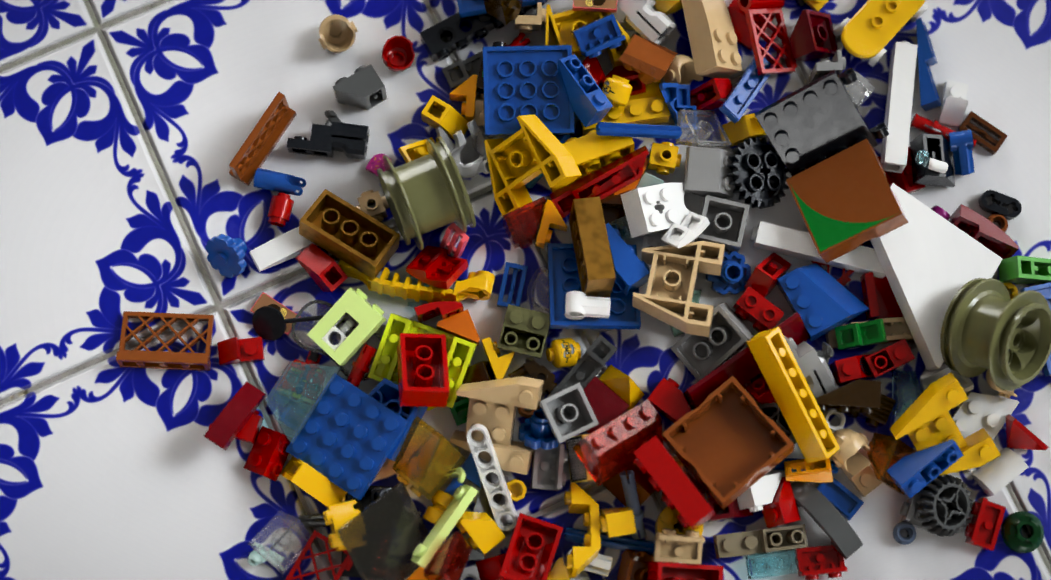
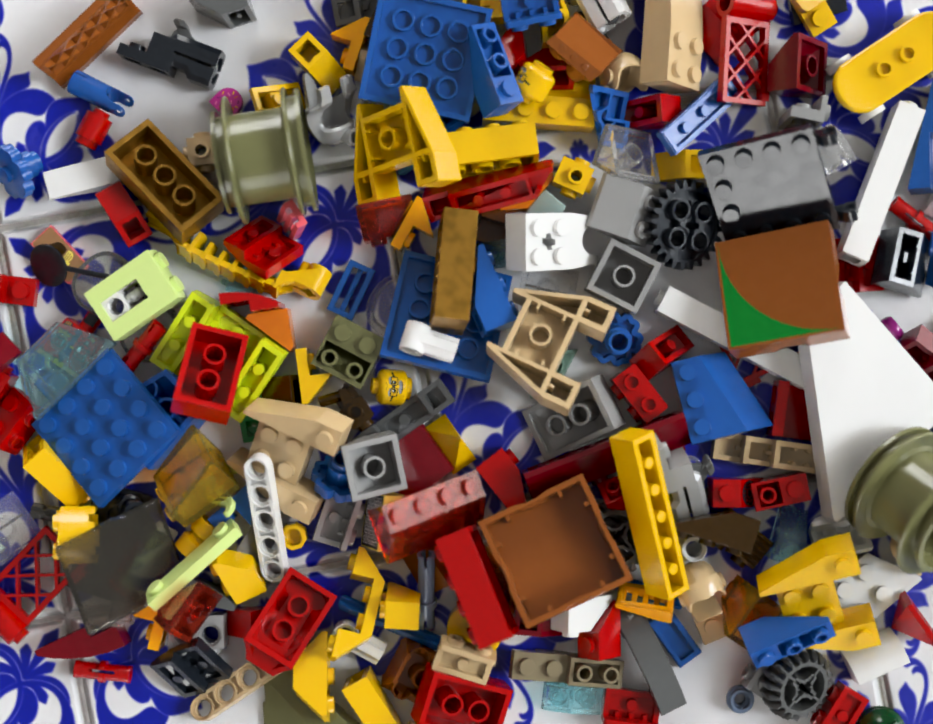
camera: 20 degrees right, 10 degrees up
(638, 130) = (548, 138): blue axle -> none
(687, 231) = (569, 282): white slope -> none
(860, 334) = (753, 454): green slope -> none
(935, 165) = (900, 269): arm -> none

